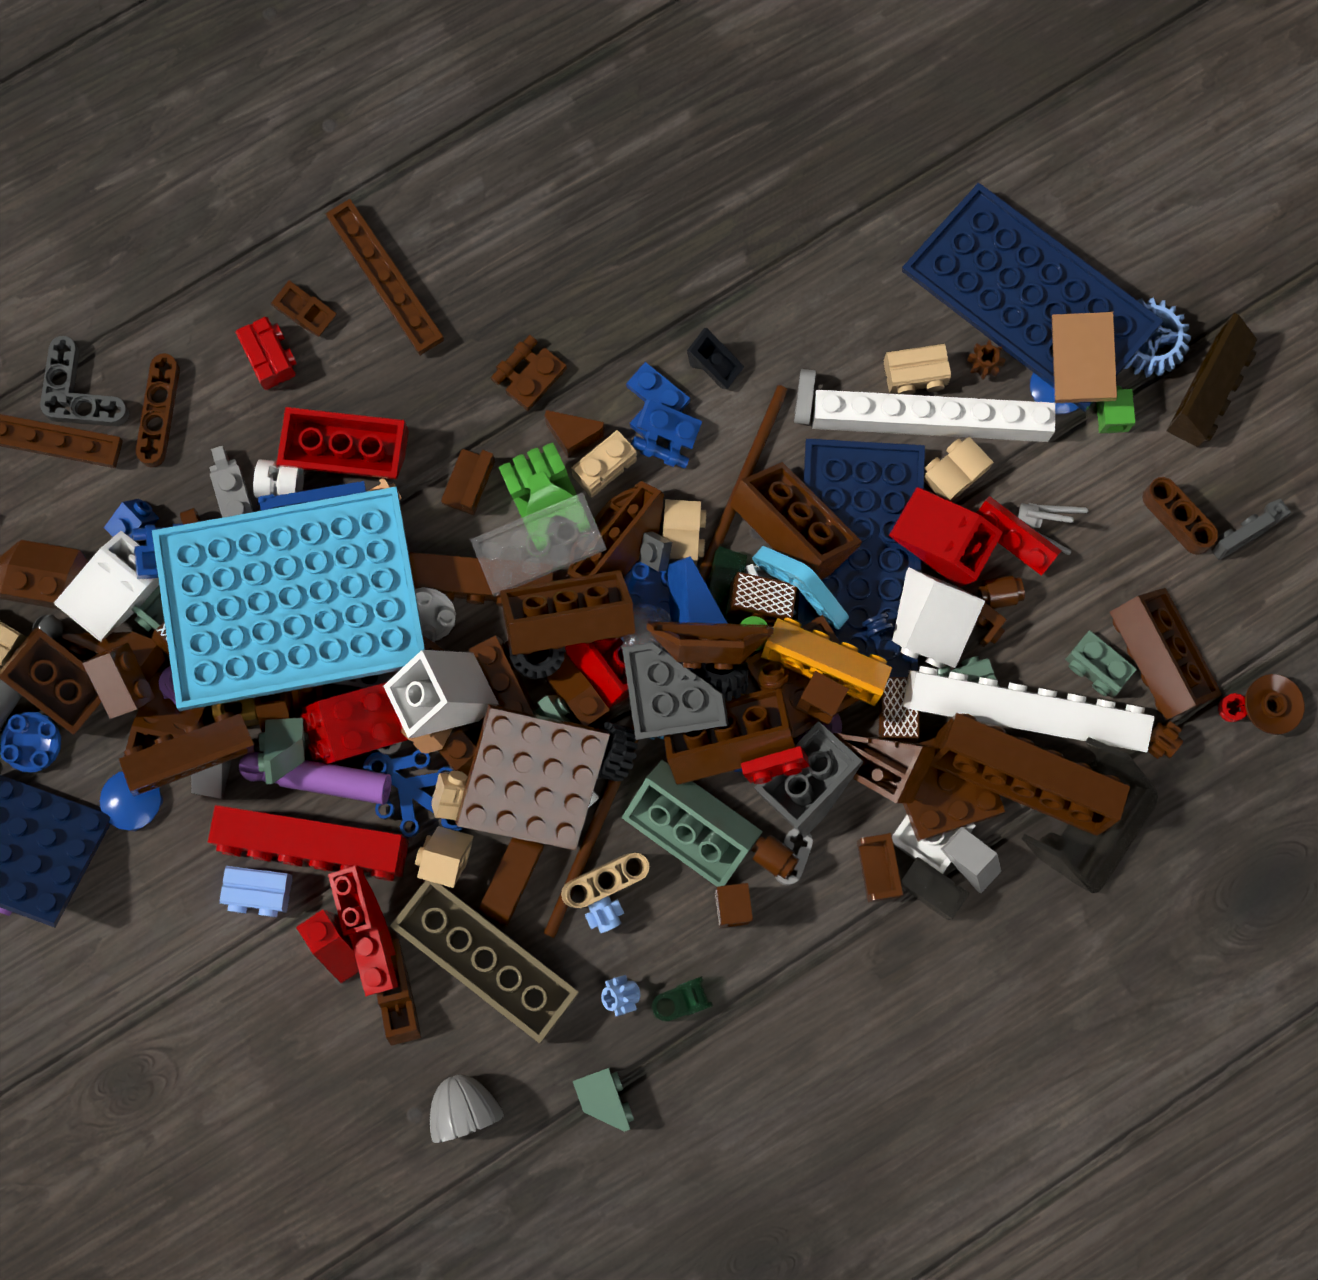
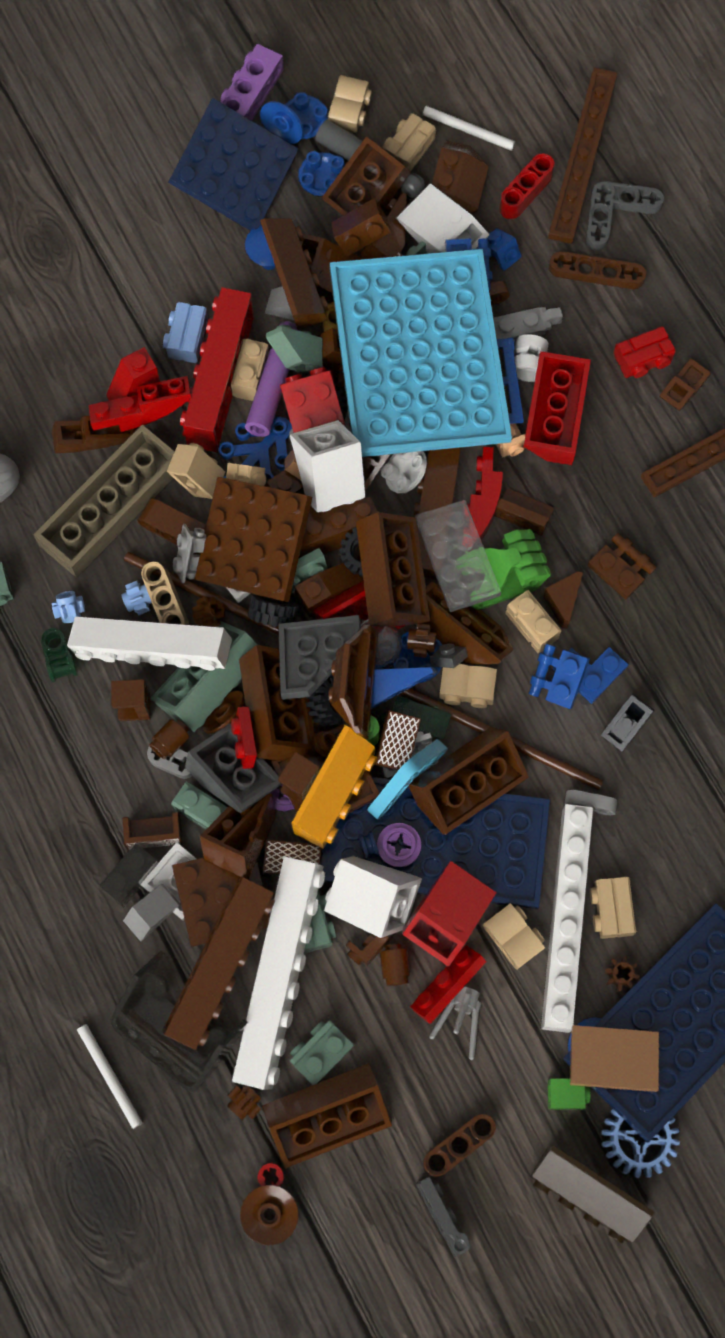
camera: 95 degrees right, 5 degrees down
(39, 483) = (530, 176): none -> red beam
(305, 804) = (249, 369): none -> tan brick
(448, 519) = (487, 493): none -> red slope
(547, 858) = (188, 543): none -> light grey hinge
(617, 828) = (208, 612): none -> reddish brown gear
(640, 580) = (421, 640): none -> reddish brown gear
(665, 890) = (150, 643): none -> white brick
(739, 796) = (222, 715): none -> reddish brown dish
(850, 814) = (197, 806): none -> sand green brick
(885, 585) = (392, 834): none -> medium lavender gear
(1150, 890) = (109, 1076): none -> white bar

